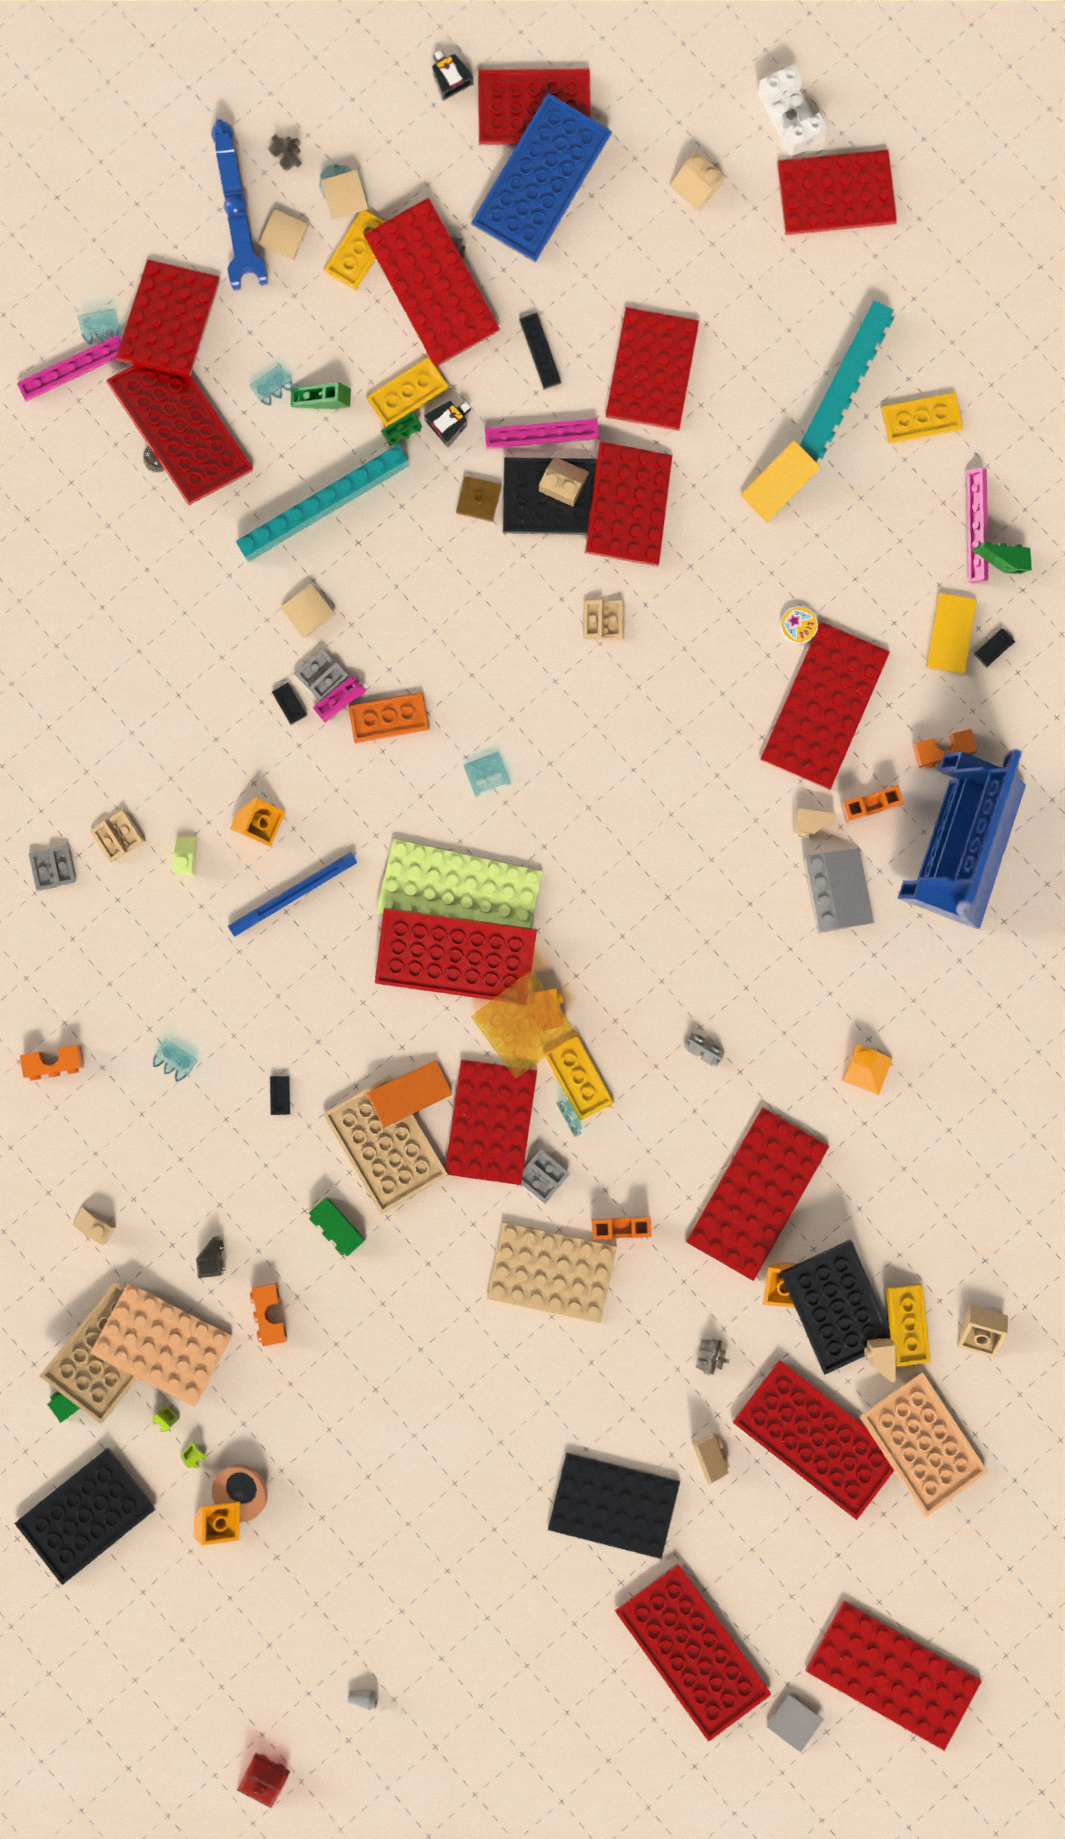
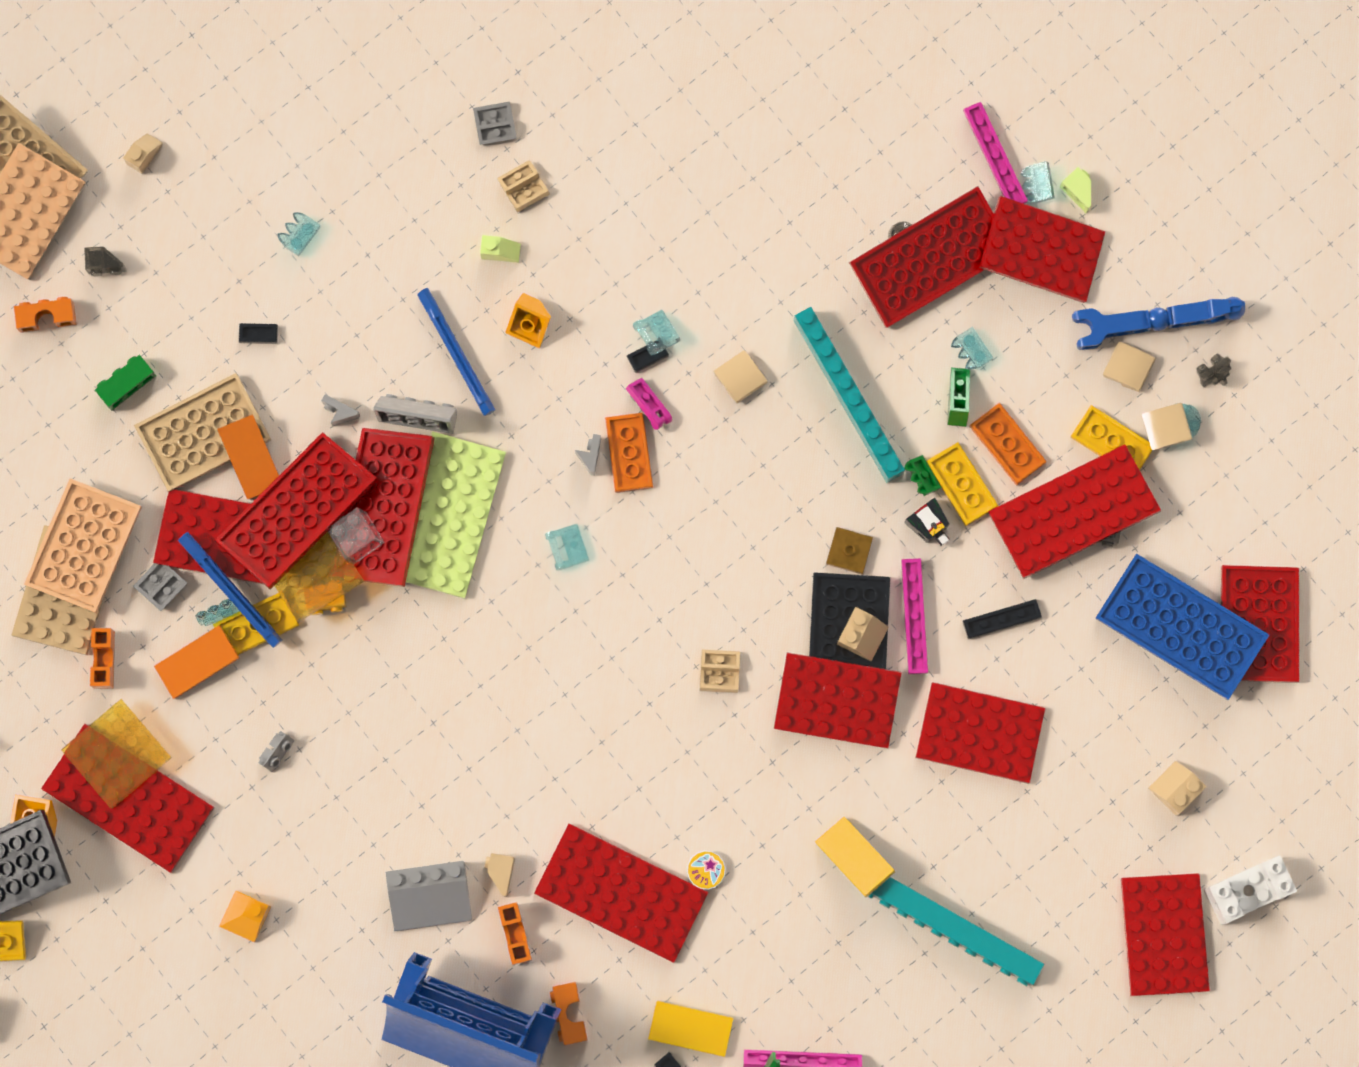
camera: 90 degrees right, 5 degrees down
(69, 1060) = (302, 101): orange arch -> none
(104, 284) = (1078, 188): none -> yellowish green slope
(263, 689) = (661, 328): none -> clear light blue plate
(321, 674) = (675, 387): light grey slope -> none
(359, 928) = (416, 414): none -> light grey slope
(359, 1002) = (343, 412): none -> light grey slope
(365, 349) = (1007, 444): none -> orange tile
(398, 754) = (590, 458): none -> light grey slope
(450, 75) = (1294, 538): torso -> none
(464, 1042) = (296, 510): none -> red plate
(487, 980) = (355, 535): none -> clear brick
(508, 1256) = (83, 545): none -> light nougat plate
(546, 1104) = (230, 589): none -> blue piece
(619, 1133) = (196, 662): none -> orange tile
(716, 1206) = (116, 753): none -> clear yellow plate
(921, 418) = (920, 1011): yellow tile -> none

